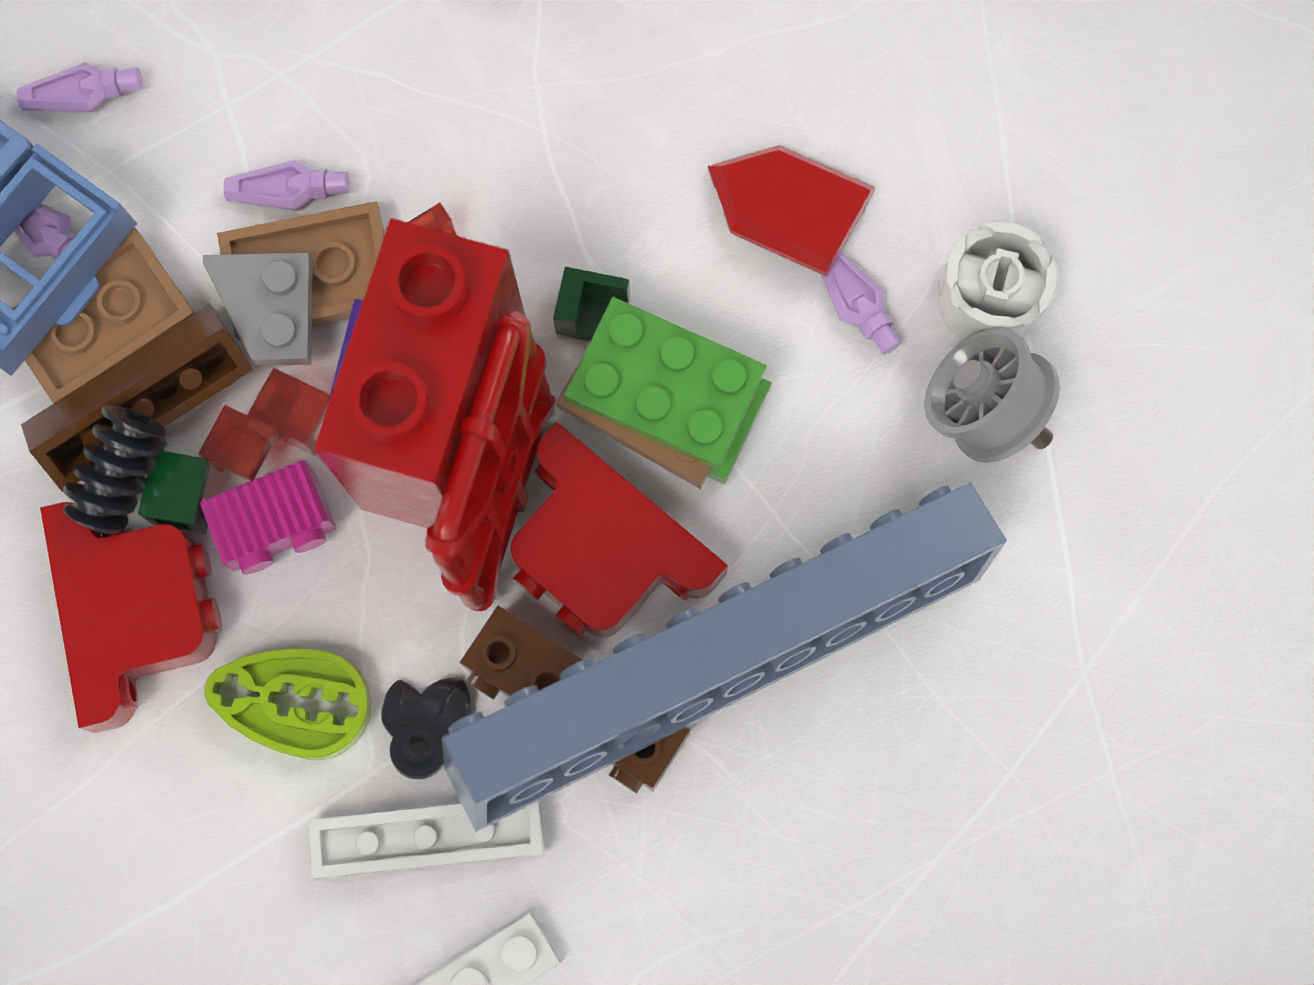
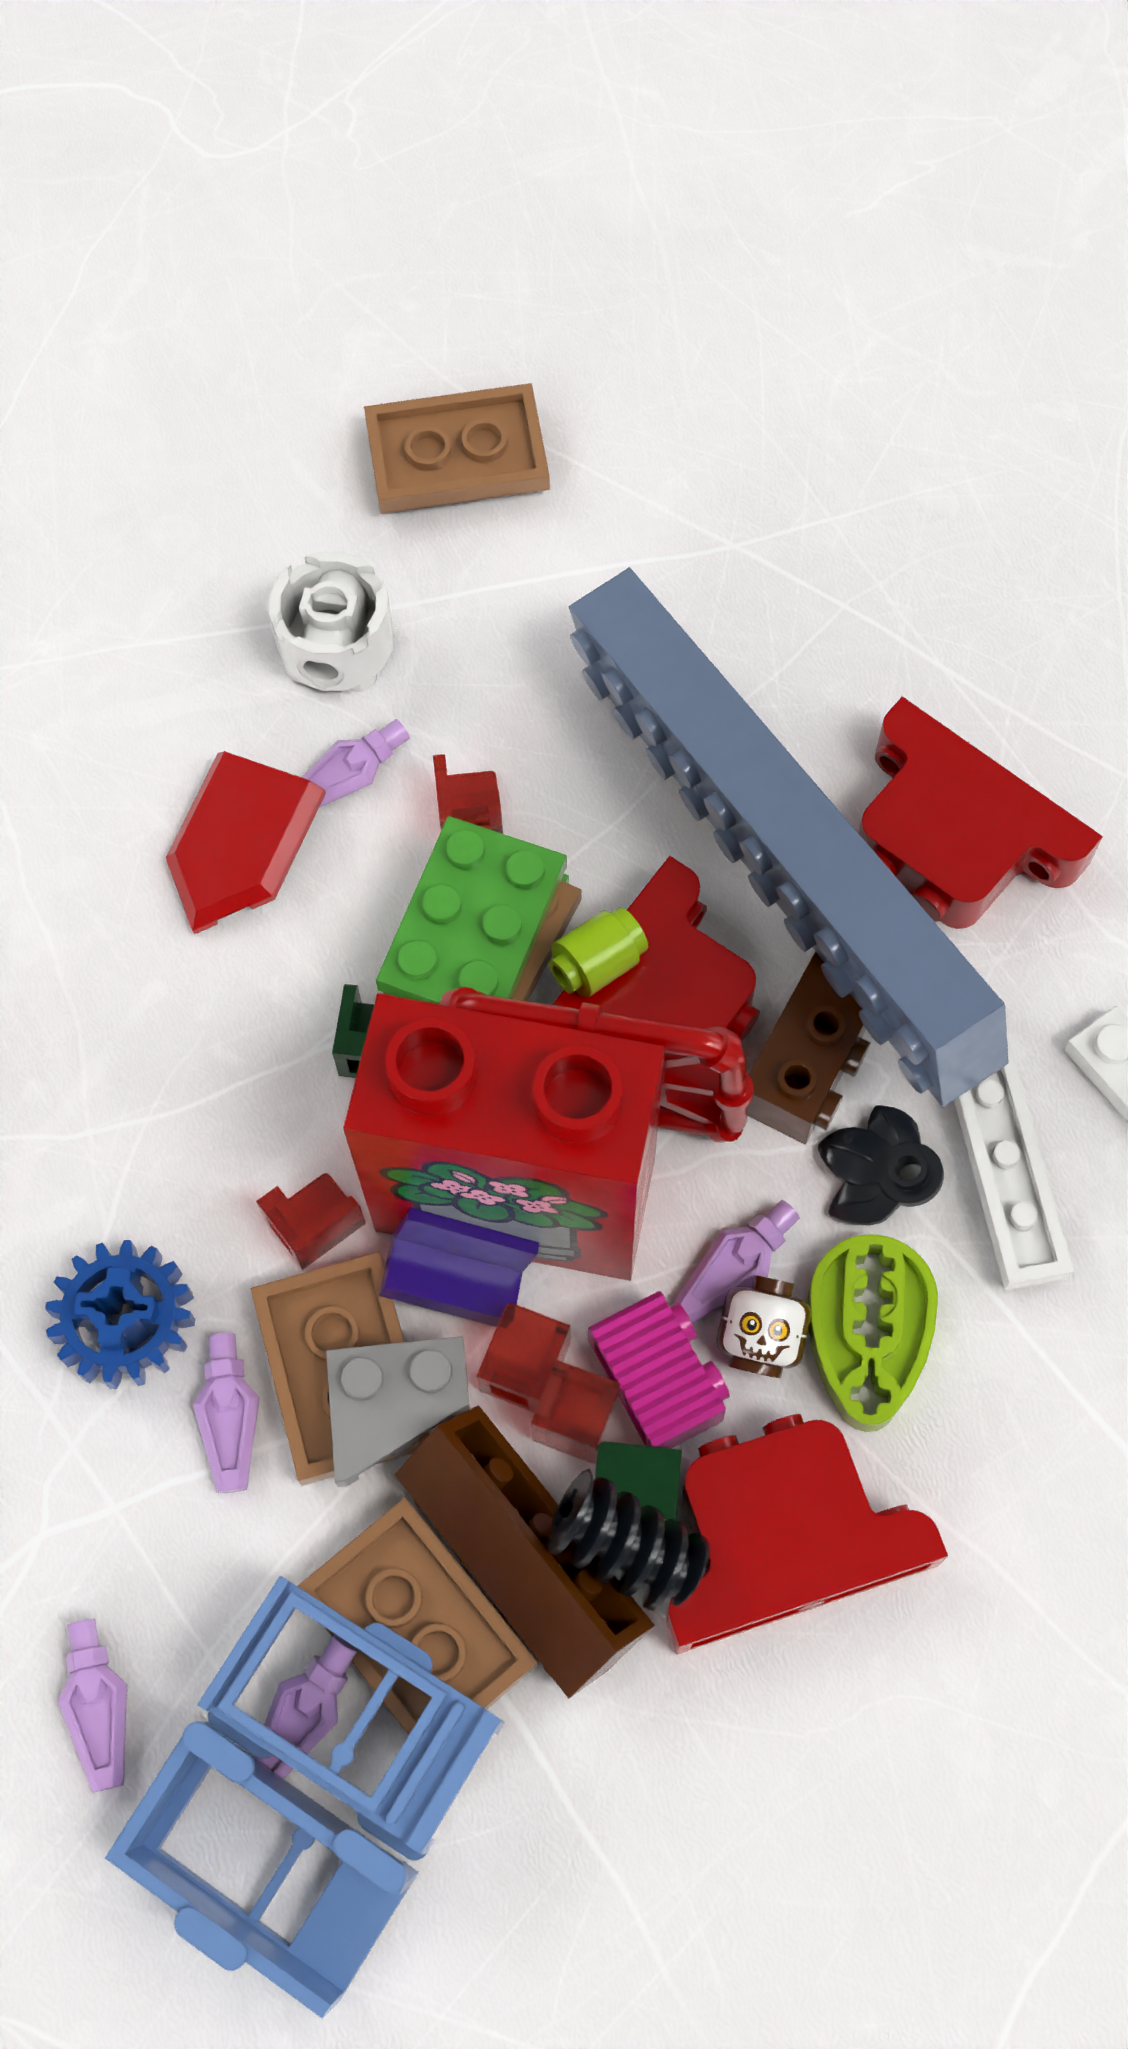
camera: 95 degrees left, 10 degrees down
(295, 607) = (764, 1327): none -> head
(362, 594) = (735, 1260): none -> lavender piece
(384, 119) = (119, 1341): none -> blue gear
(626, 486) = (597, 952): none -> lime brick
(752, 840) = (962, 823): none -> red brick
(812, 398) = (468, 796): none -> clear red panel
(993, 396) = (460, 611): light grey wheel -> none
(1198, 412) = (456, 448): none -> medium nougat plate

